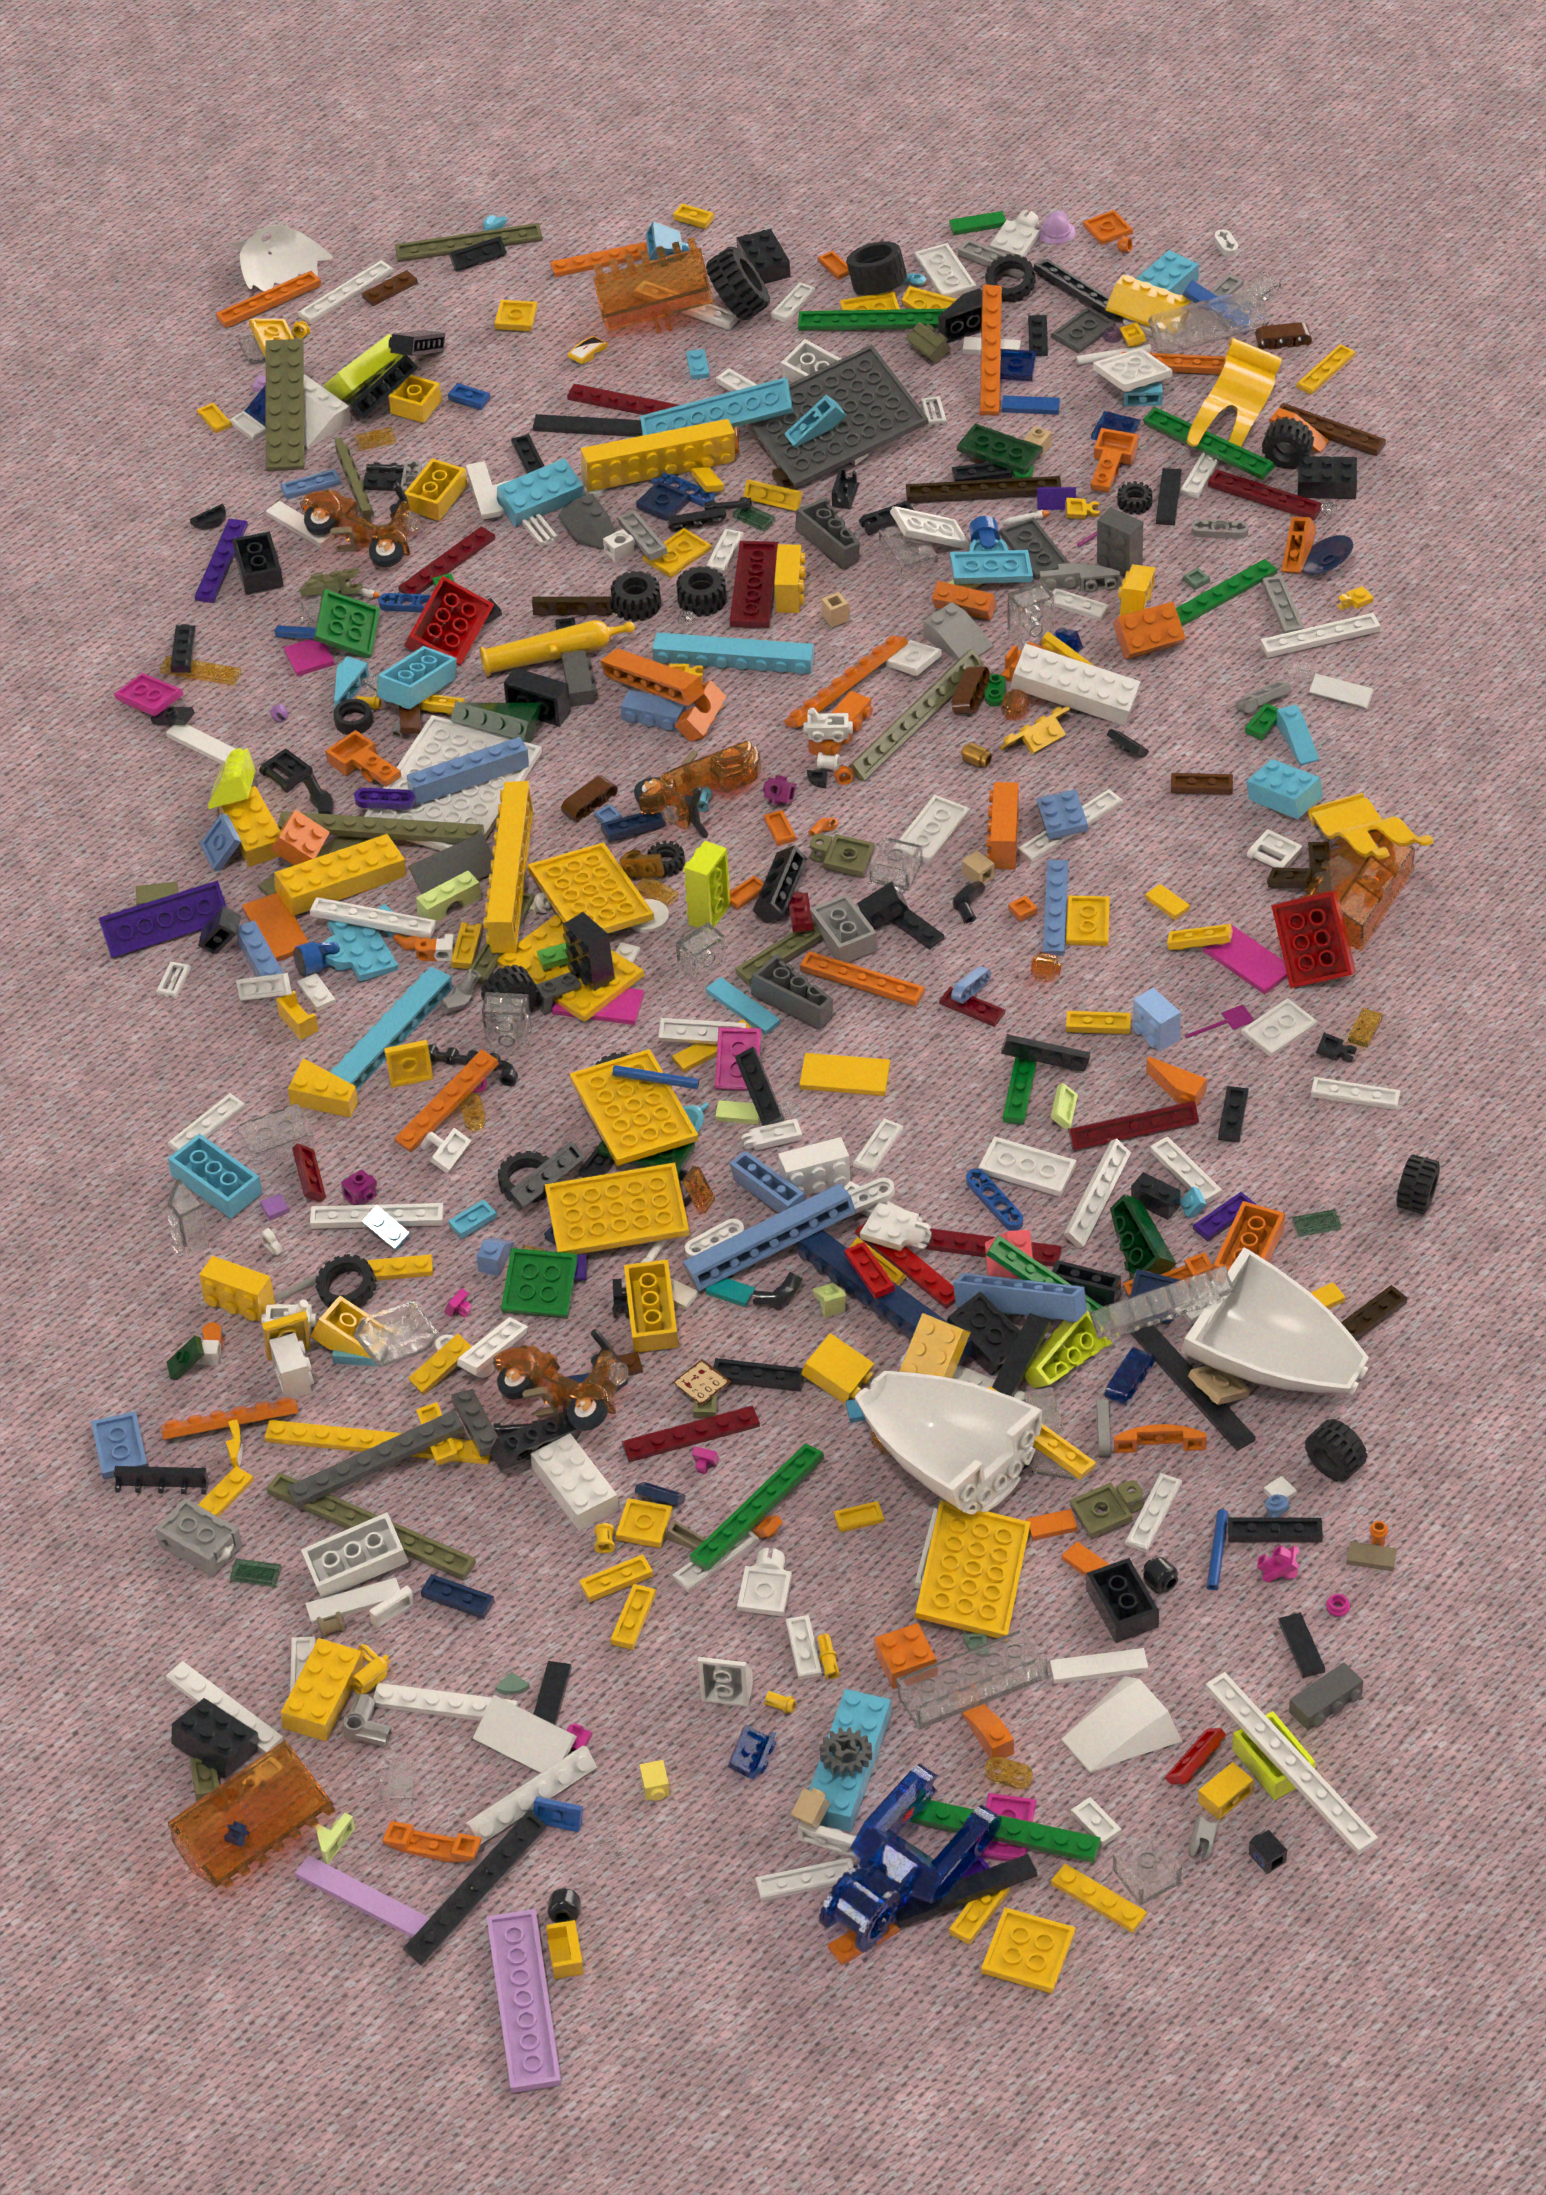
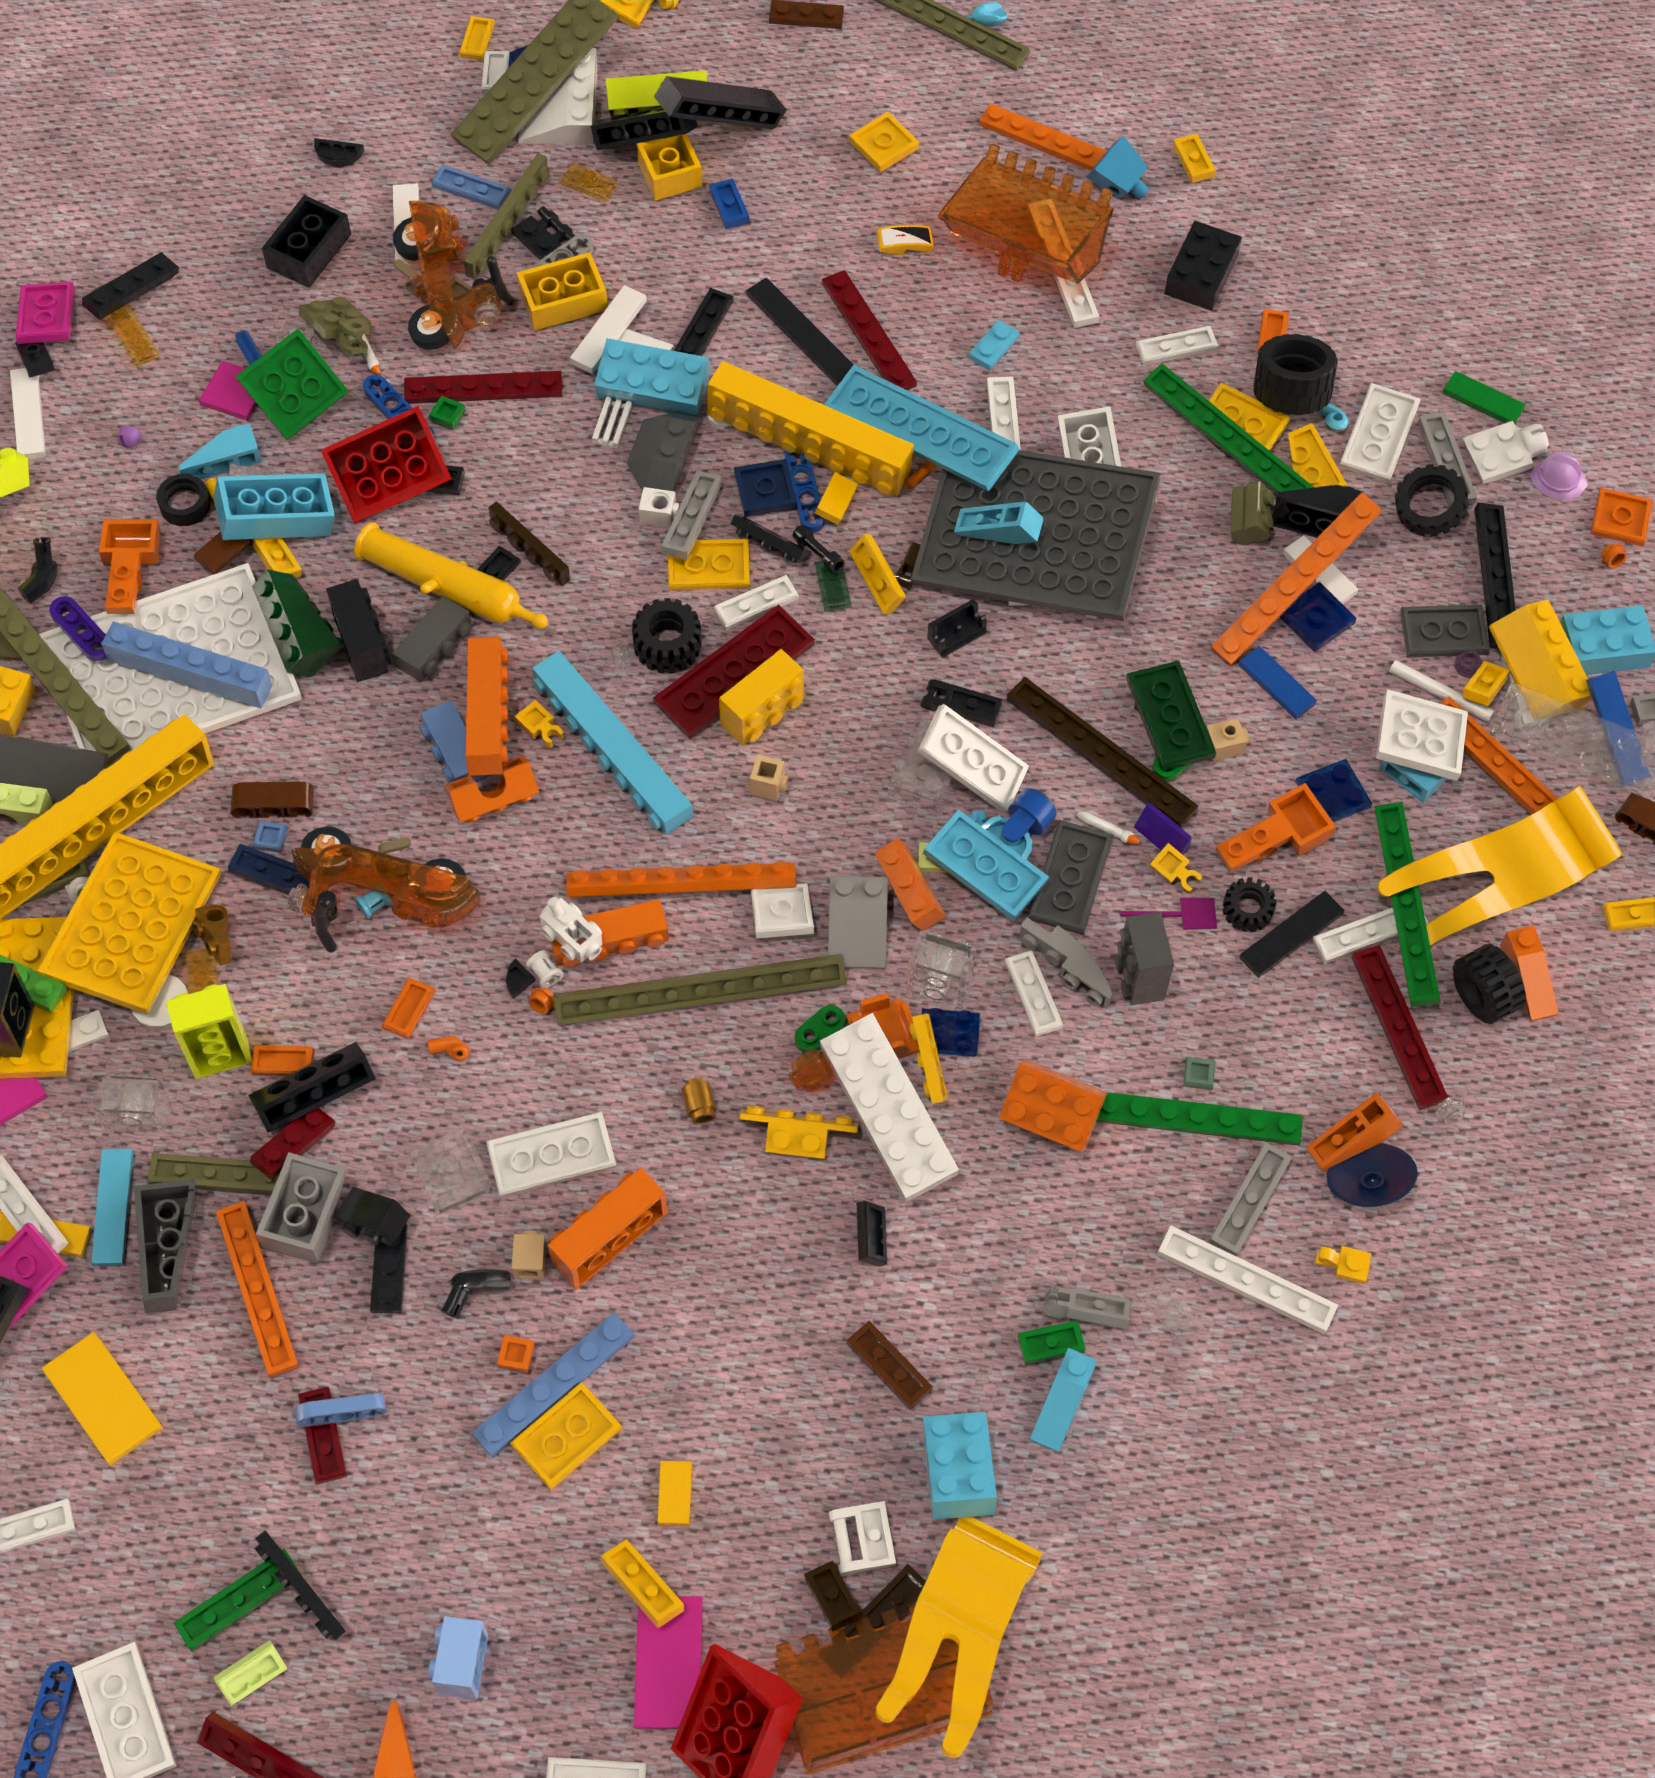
camera: 40 degrees right, 15 degrees up
(220, 561) = (269, 219): dark purple plate -> none
(290, 766) = (64, 509): black plate -> none
(477, 253) = (930, 38): black plate -> none
(635, 596) = (600, 603): black tyre -> none
(669, 850) = (262, 958): black tyre -> none
(738, 283) = (1117, 281): black tyre -> none
(779, 790) = (452, 963): magenta brick -> none
(828, 532) = (876, 661): dark grey wedge -> none
(835, 852) = (419, 1091): olive plate -> none
(935, 421) = (1154, 621): white tile -> none
(970, 690) = (786, 1009): reddish brown beam -> none
(980, 471) = (1119, 726): black plate -> none
(1038, 334) = (1387, 597): black plate -> none
(1045, 966) = (444, 1459): clear orange head -> none
(1062, 814) = (693, 1267): medium blue plate -> none
(1093, 811) = (692, 1287): white tile -> none
(1098, 1022) = (413, 1589): yellow plate -> none
(1136, 588) = (1104, 1035): yellow wedge -> none
(1225, 524) = (1299, 1017): light grey beam -> none
(1234, 1017) = (569, 1731): magenta piece -> none
(1327, 477) = (1492, 1066): black brick -> none
(1340, 432) = (1576, 1004): reddish brown plate -> none
(1341, 691) = (1183, 1381): white tile -> none

